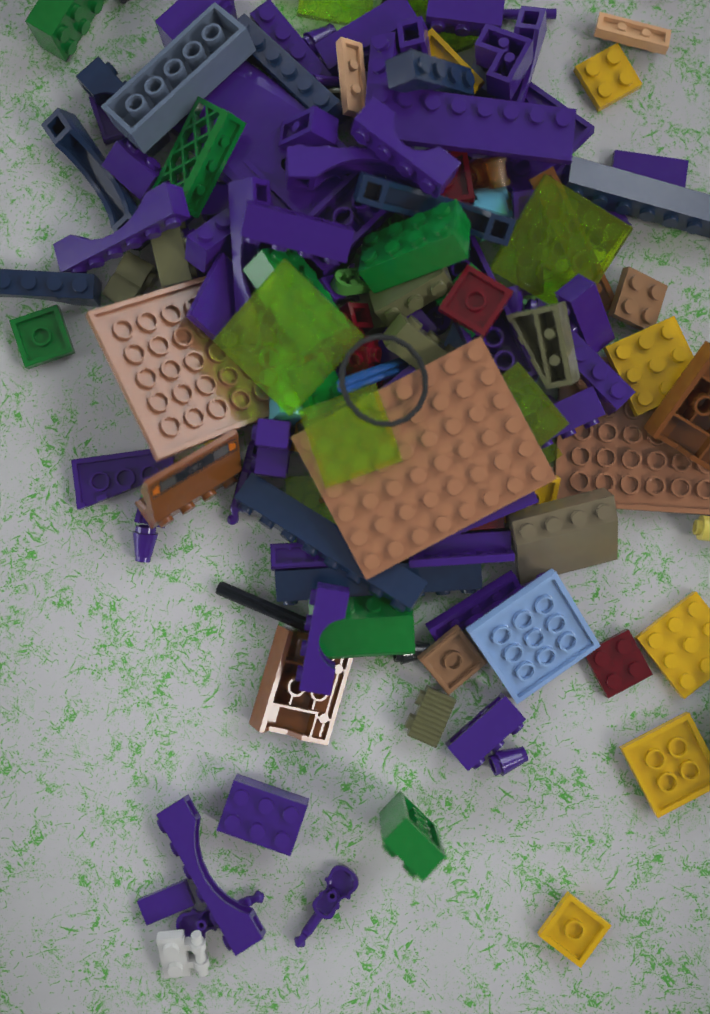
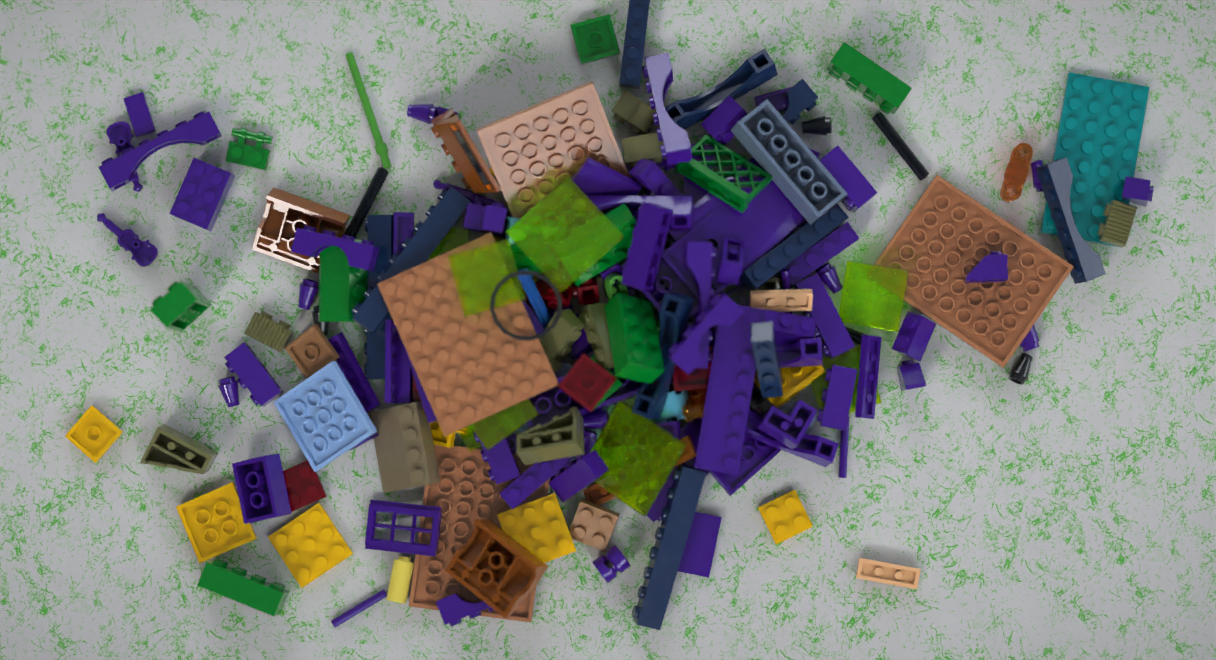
camera: 105 degrees right, 0 degrees up
(113, 474) = (479, 89): dark purple wing -> none
(134, 58) = (818, 126): none -> black cone
(174, 954) = (100, 119): white plate -> none
(191, 592) = (381, 147): none -> bright green bar
(210, 758) = (248, 155): none -> green plate
(378, 671) = (307, 293): none -> dark purple cone
(590, 820) = (178, 451): none -> olive wedge
(630, 710) = (261, 488): none -> dark purple brick
(632, 33) = (819, 539): light nougat plate -> none
(680, 265) = (617, 559): none -> dark purple wheel
(684, 534) = (401, 546): none -> dark purple piece

